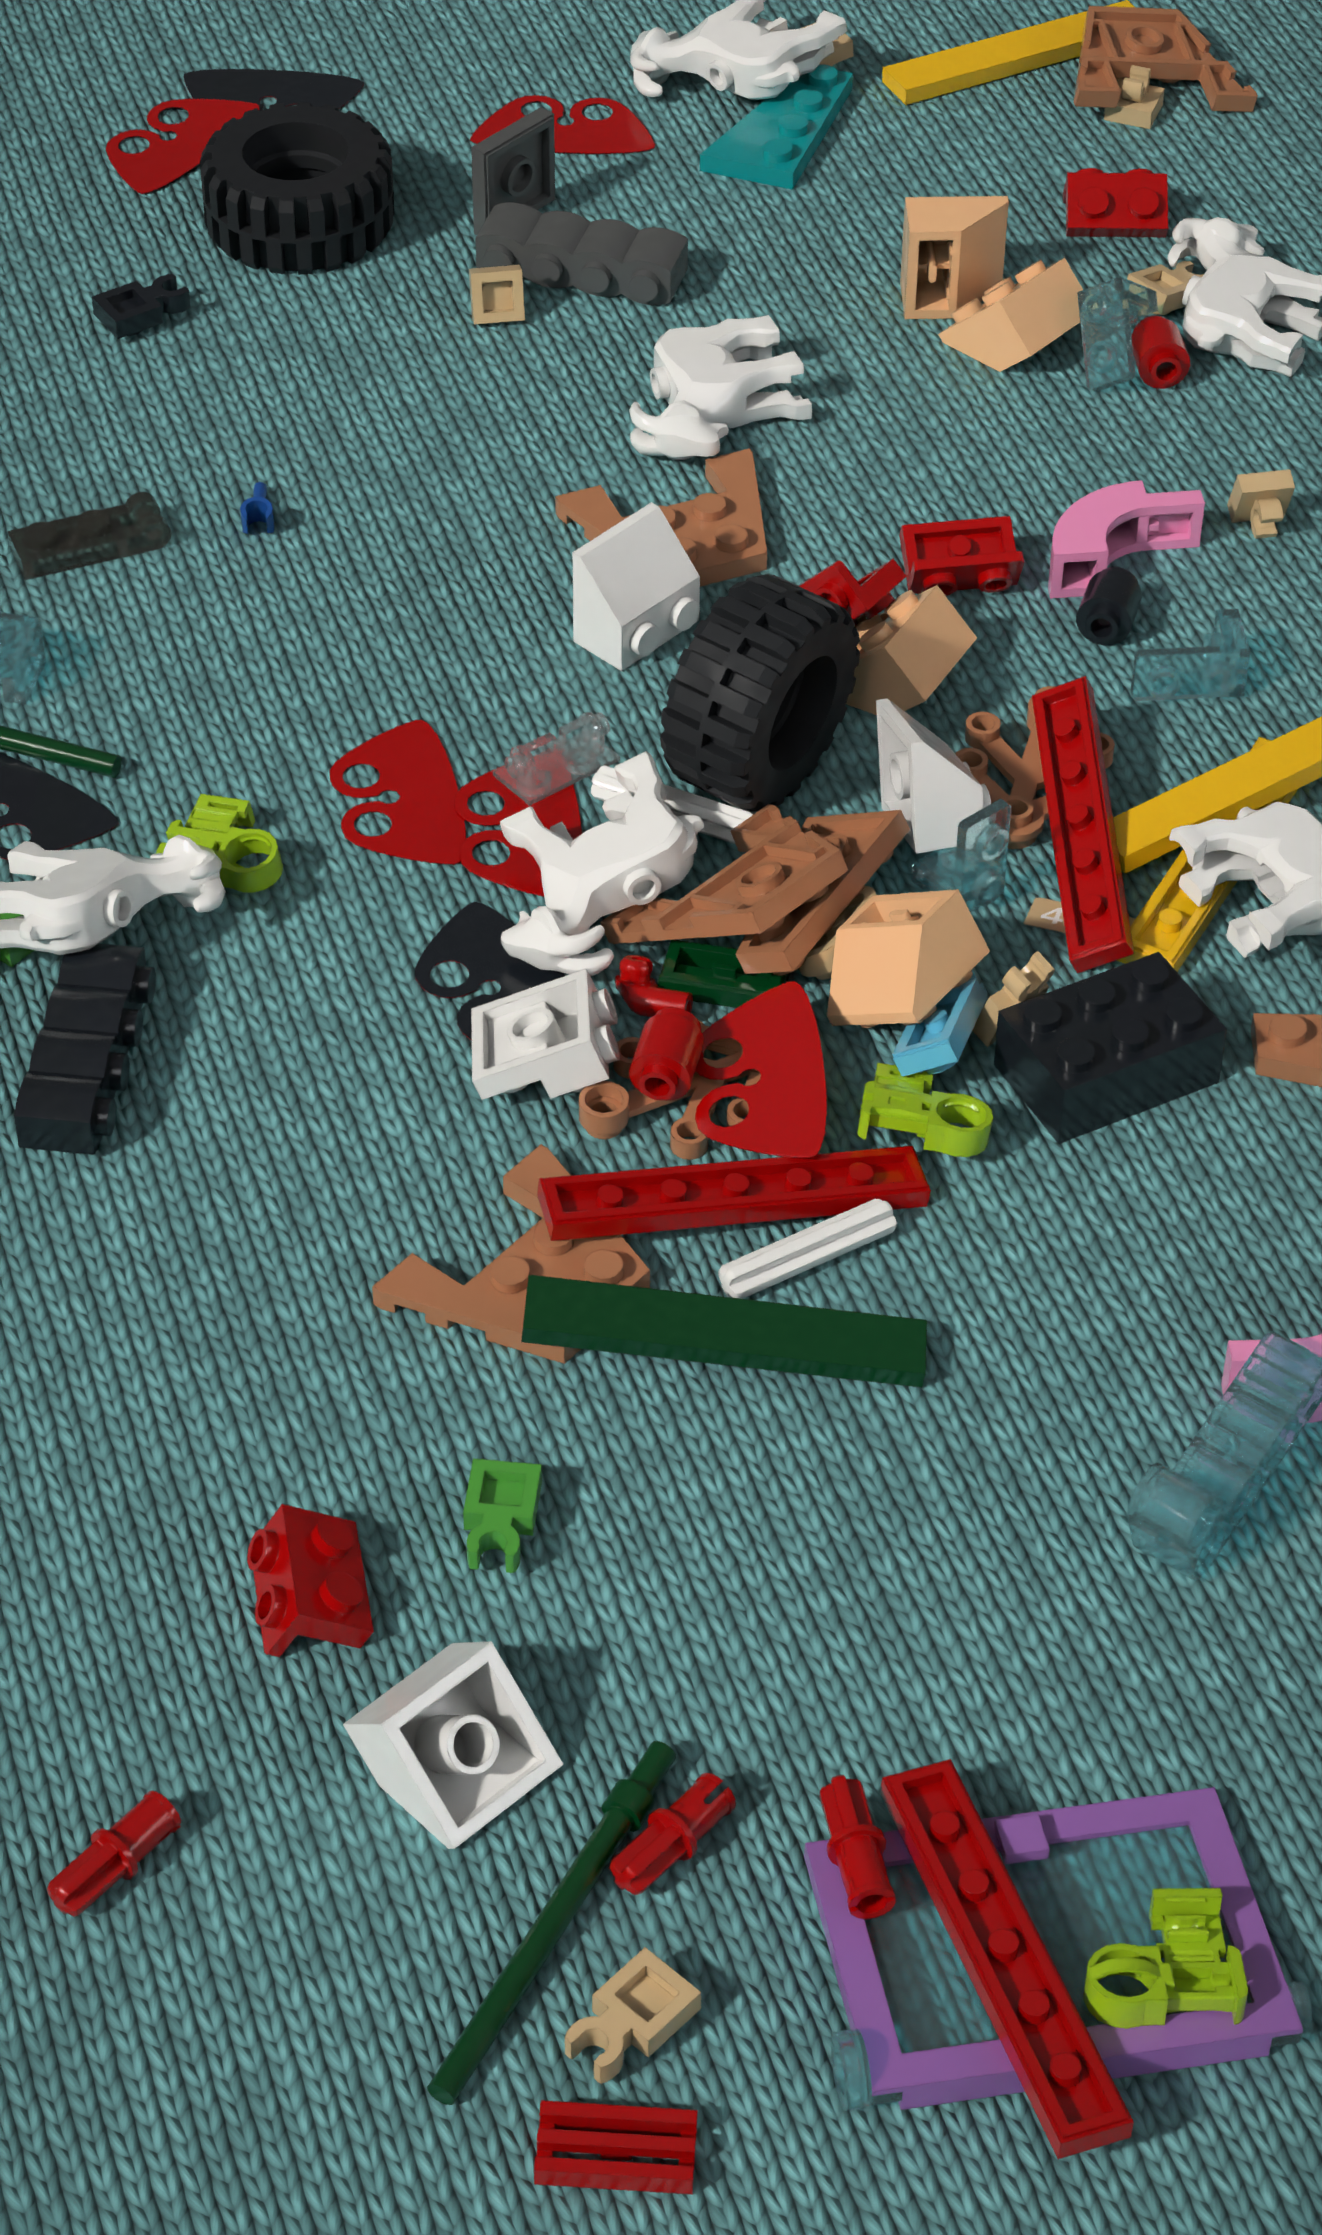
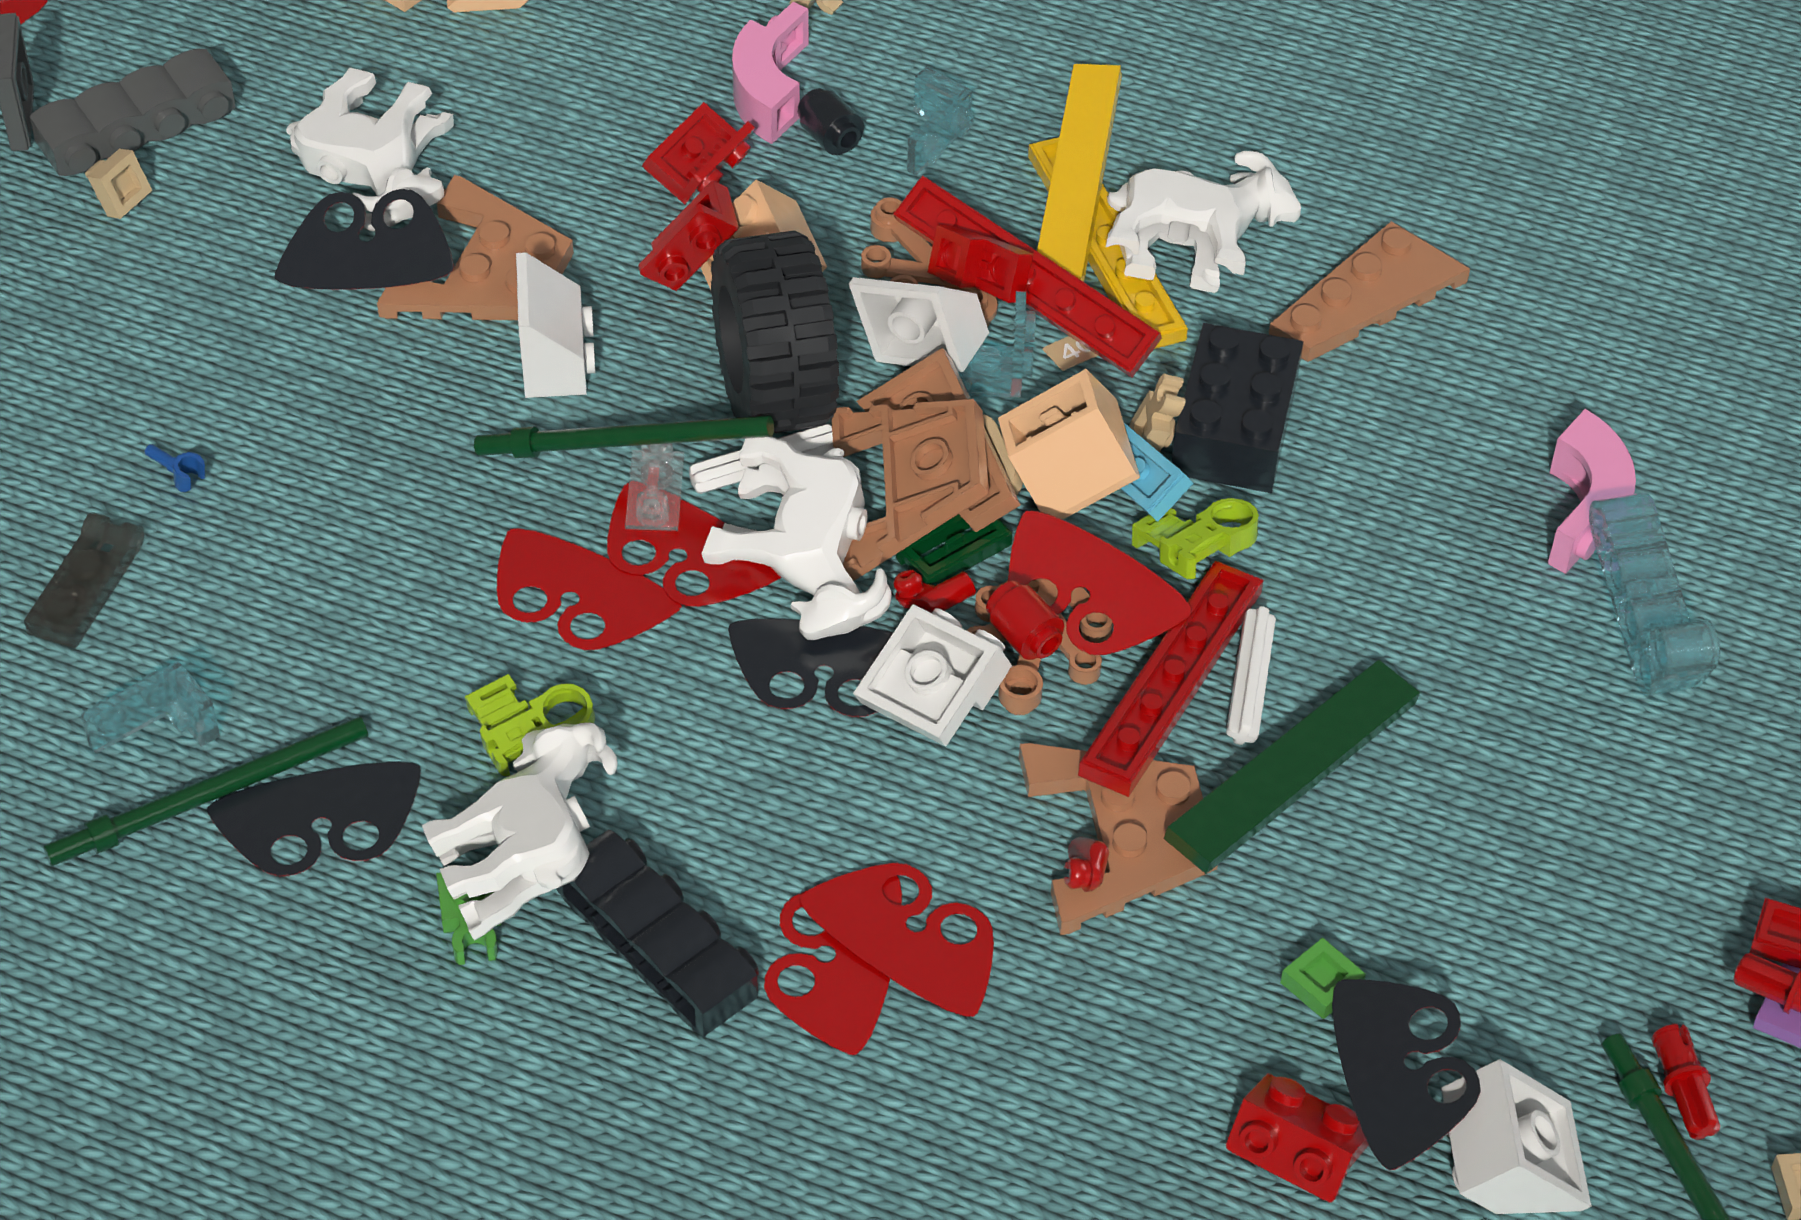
camera: 50 degrees left, 5 degrees up
(240, 1231) = (876, 931): none -> red piece
(249, 1171) = (846, 990): none -> red piece
(387, 1615) = (1386, 1095): none -> black piece
(446, 1260) = (1086, 863): none -> red arm
(514, 666) = (530, 442): none -> dark green bar
(573, 453) = (343, 261): none -> black piece
(1042, 777) = (979, 262): none -> red slope

